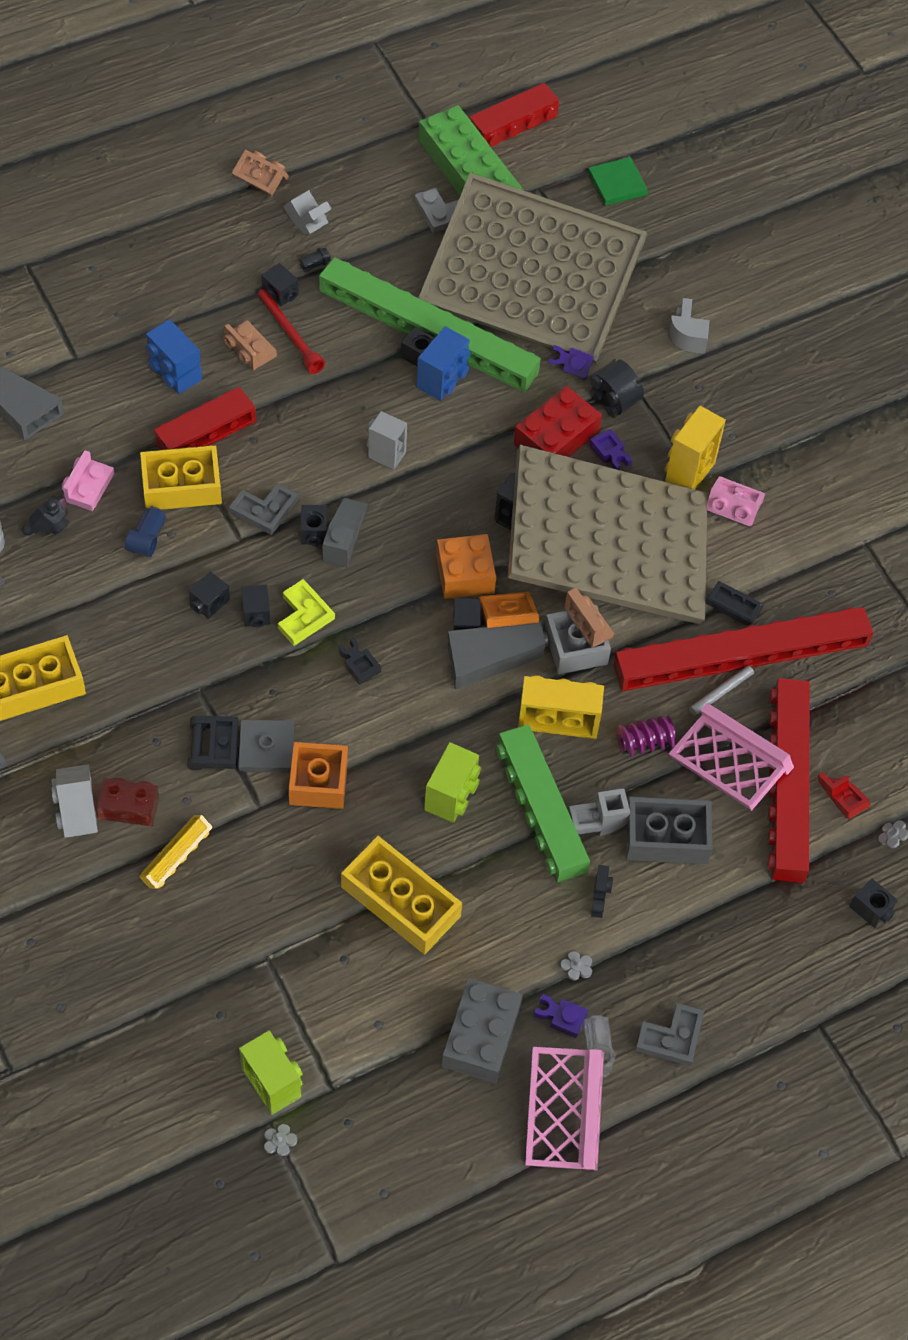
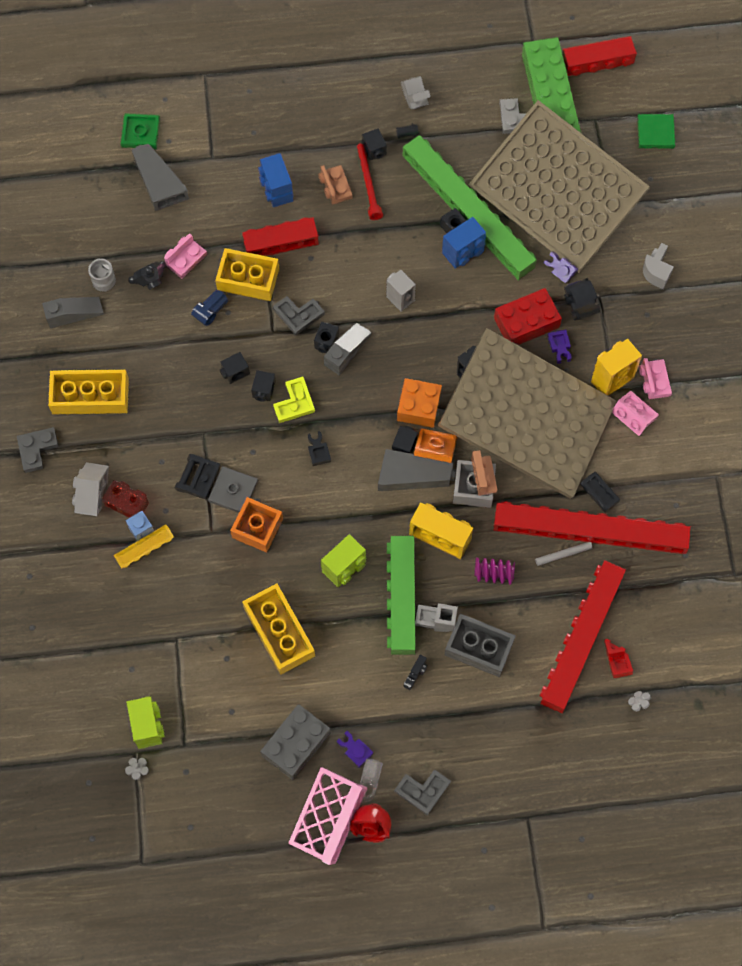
camera: 25 degrees right, 10 degrees up
(160, 826) = (139, 525): none -> medium blue brick
(259, 172) = (394, 50): nougat bracket -> none
(577, 966) = (379, 718): light grey plant -> none
(626, 1099) = (371, 822): none -> red cylinder
(742, 455) = (655, 379): none -> bright pink bracket
(748, 742) = (561, 603): bright pink fence -> none
(874, 893) = (602, 738): black brick -> none

